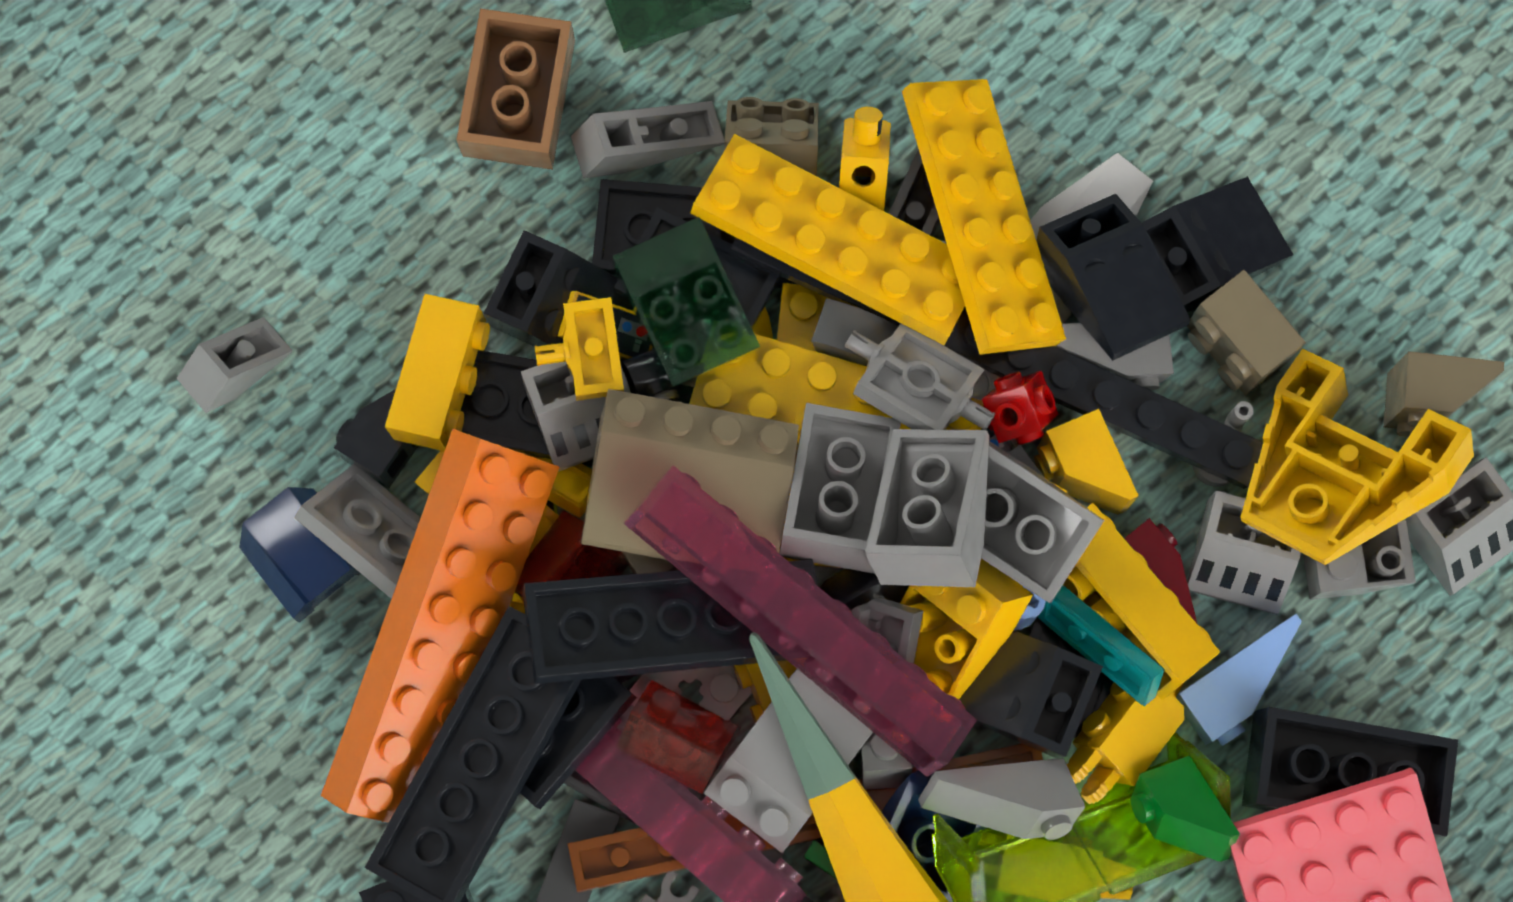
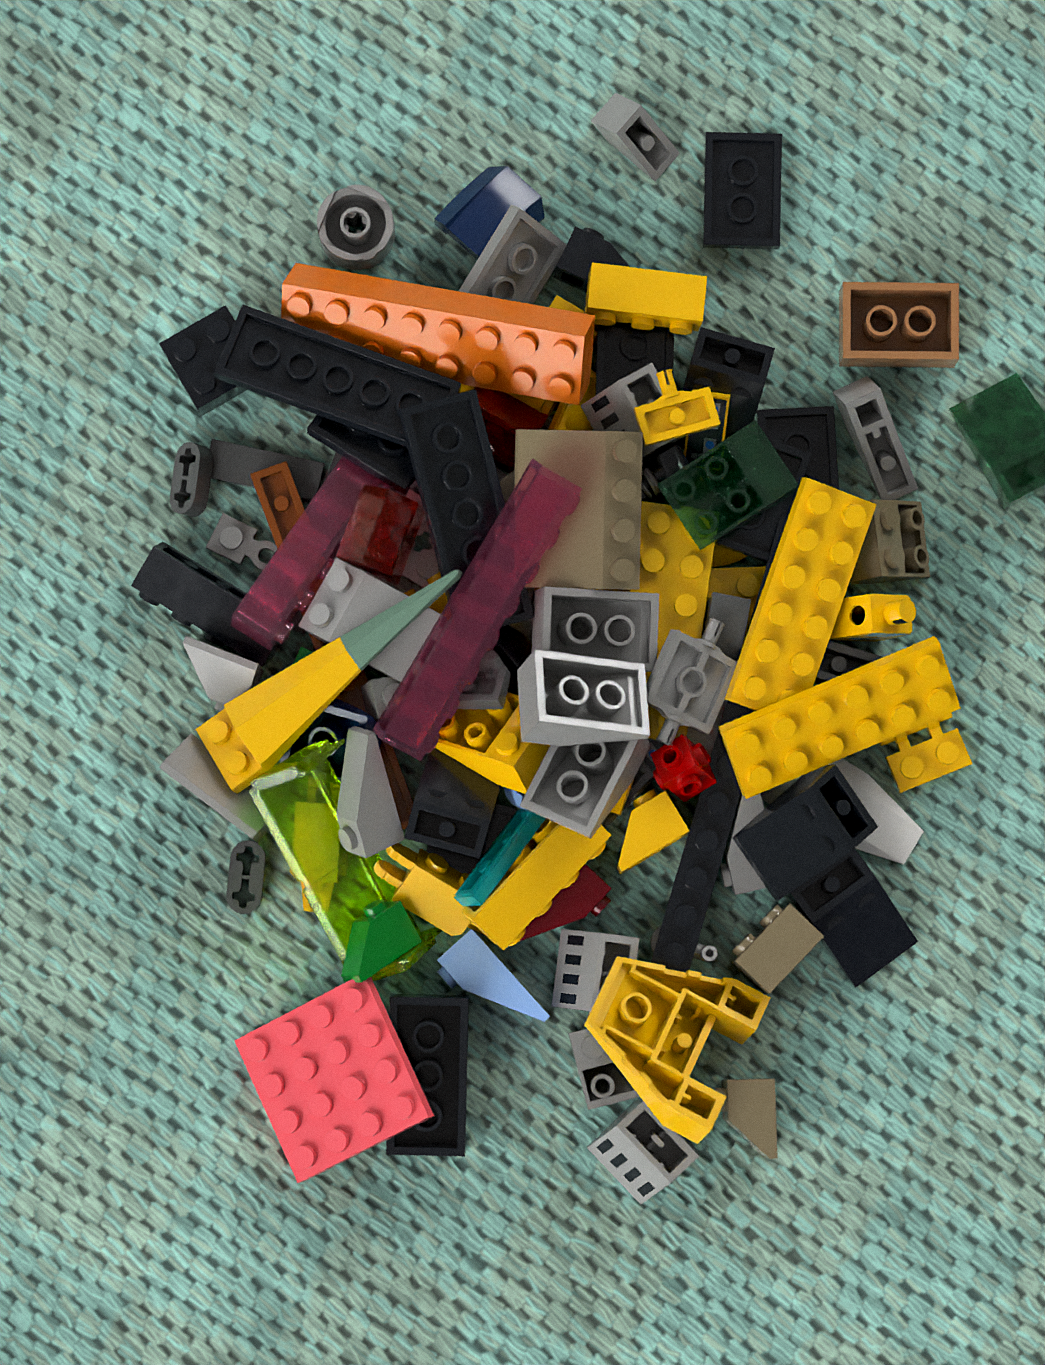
camera: 80 degrees right, 5 degrees up
(264, 730) = (347, 208): none -> light grey brick
(322, 248) = (742, 190): none -> black plate
(1034, 135) = (927, 759): none -> yellow plate

